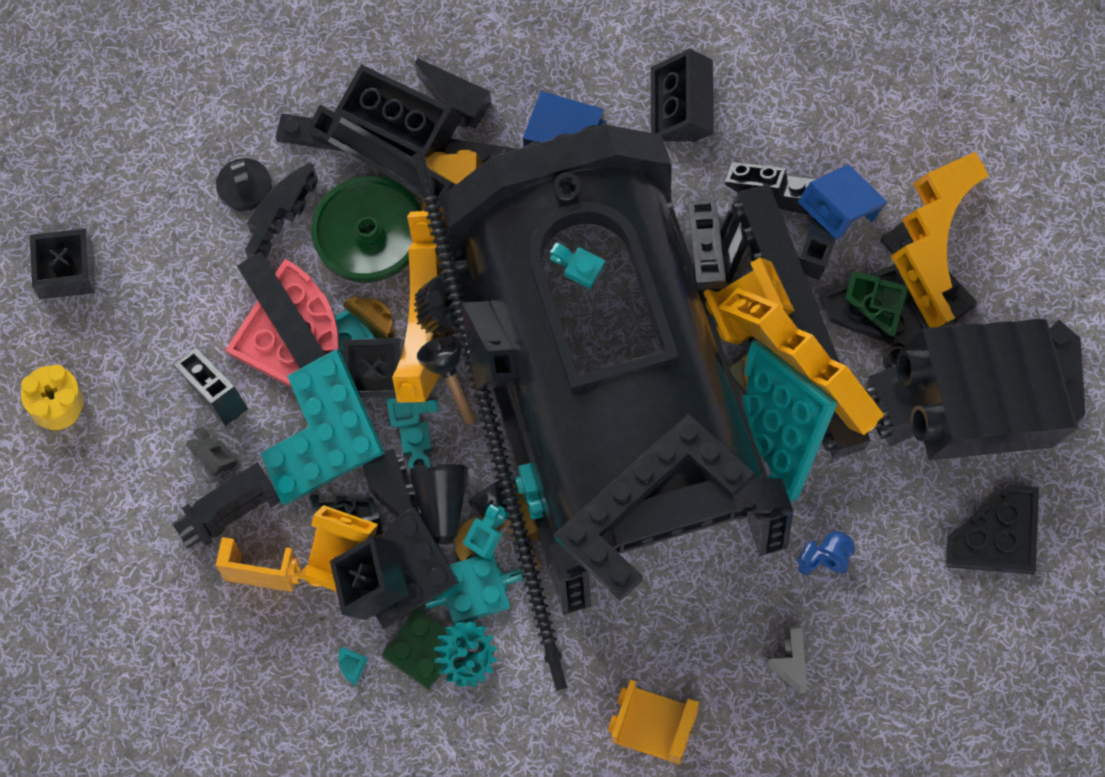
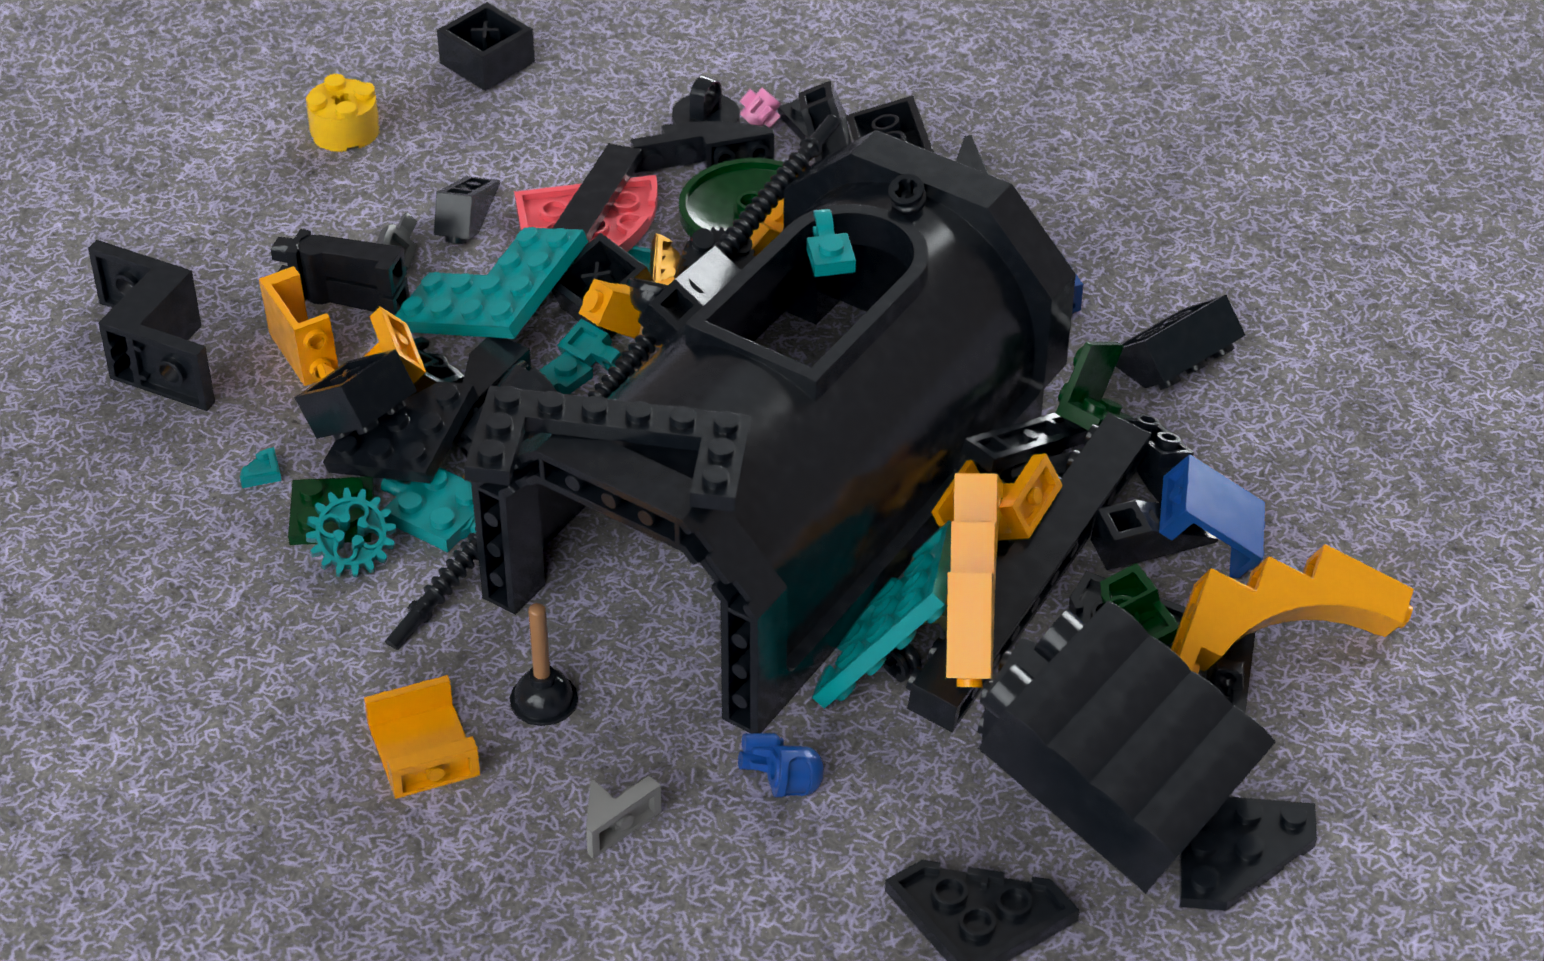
camera: 45 degrees right, 25 degrees down
(169, 629) = (151, 325): none -> black bracket
(273, 151) = (760, 108): none -> bright pink gear
(670, 636) = (543, 693): none -> black piece
(703, 189) = (1082, 395): none -> dark green bracket

